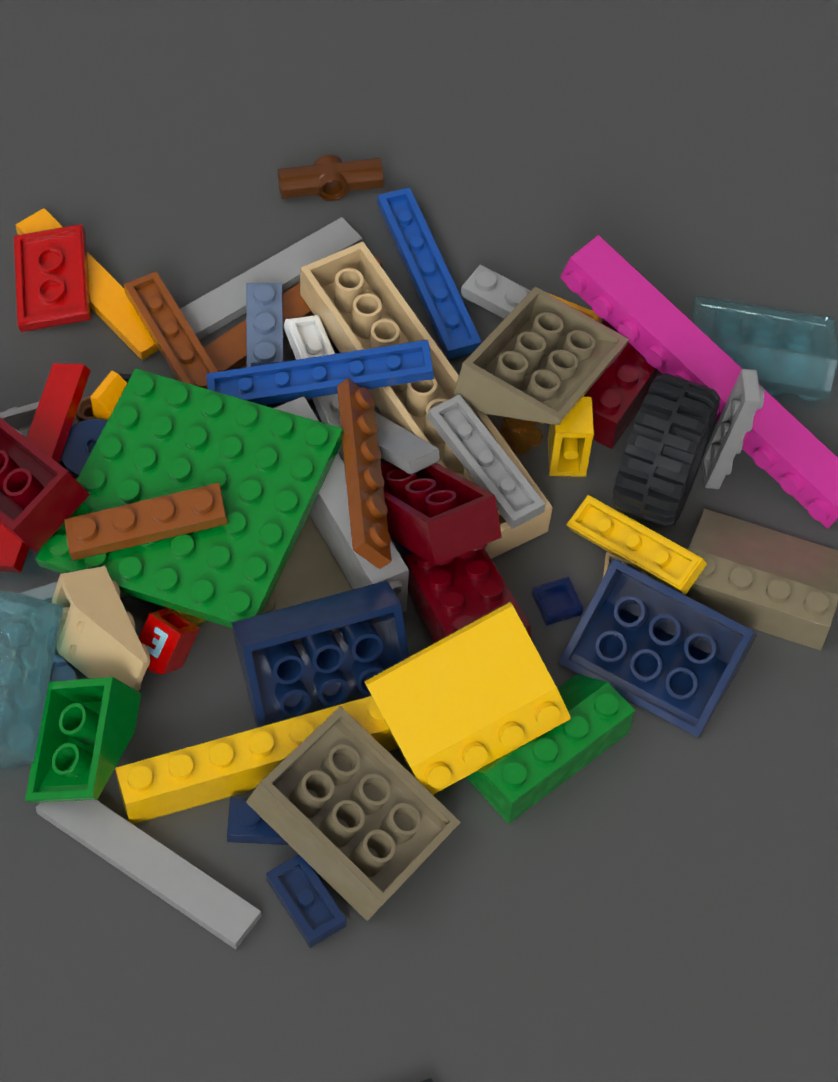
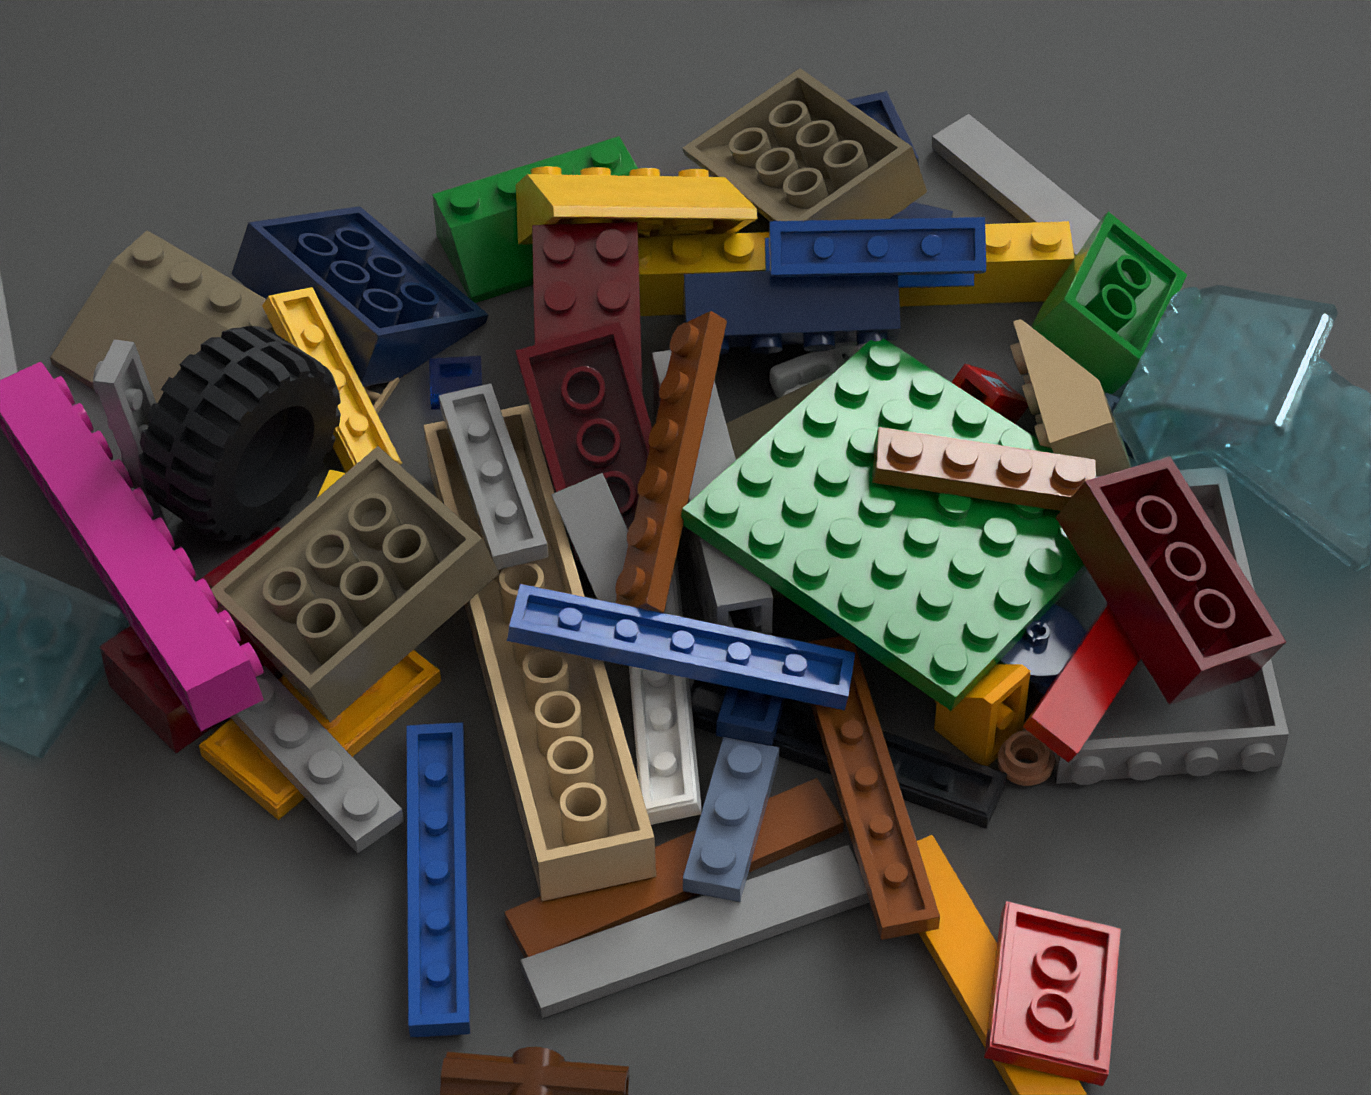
camera: 160 degrees left, 5 degrees down
(238, 642) = (915, 249): none -> blue fence

